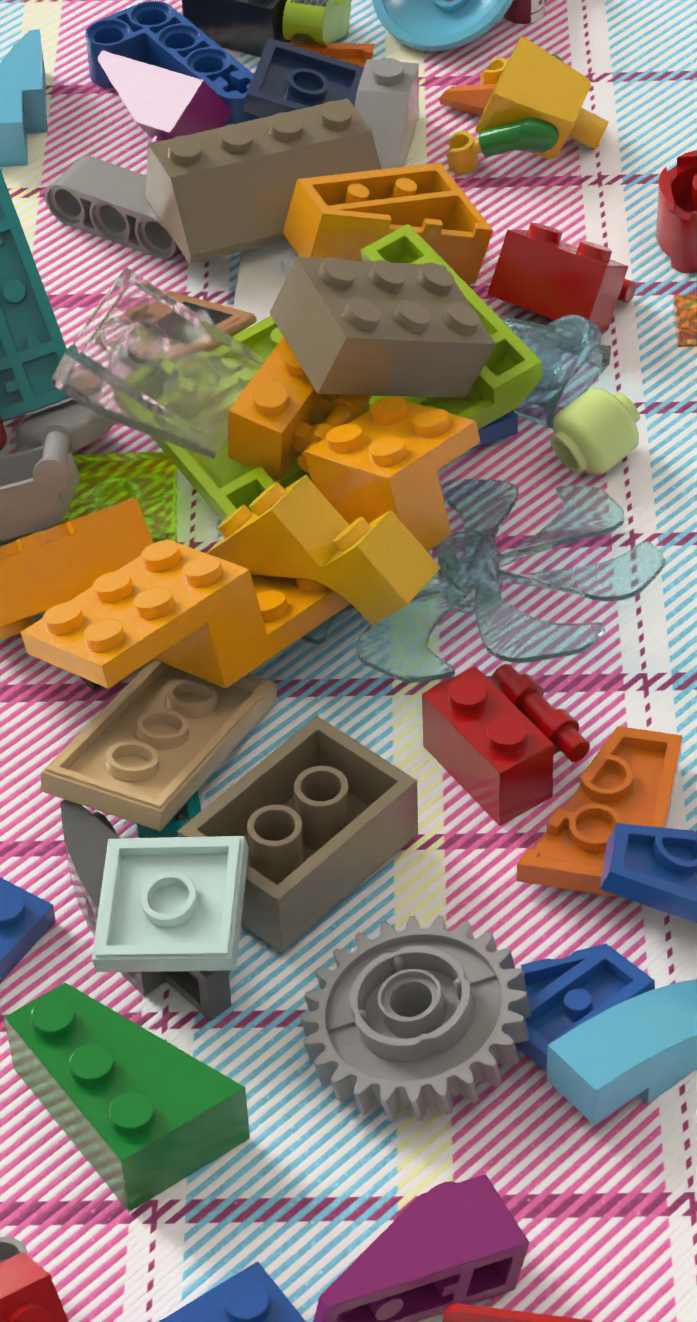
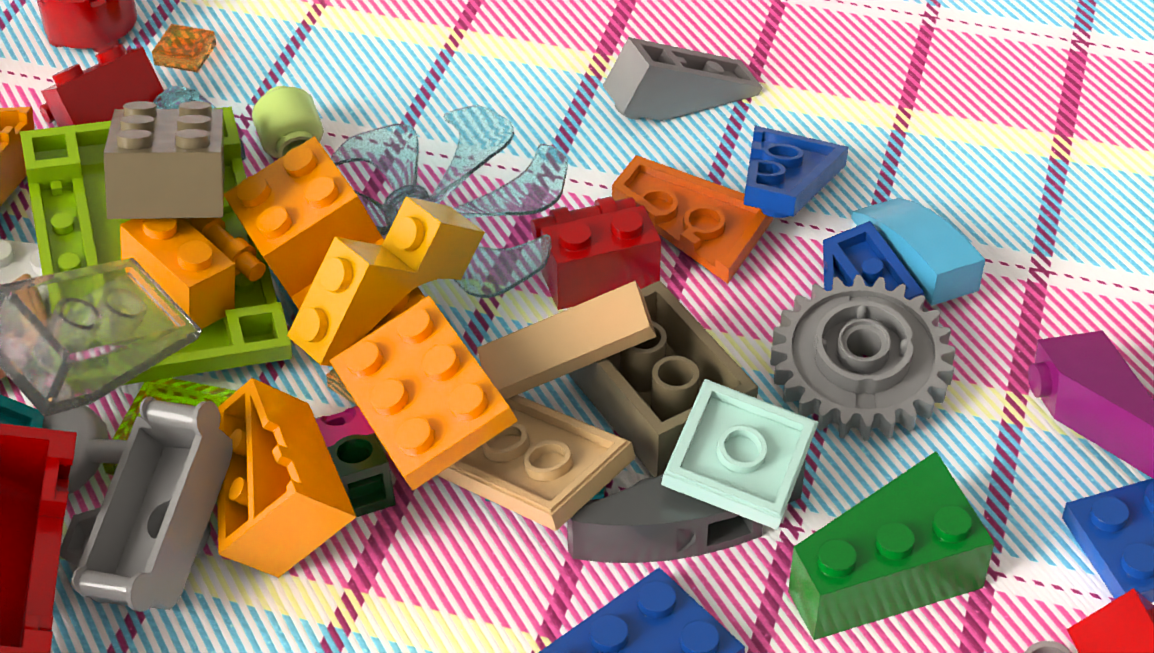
camera: 75 degrees left, 0 degrees up
(281, 721) = (567, 341): none -> tan tile

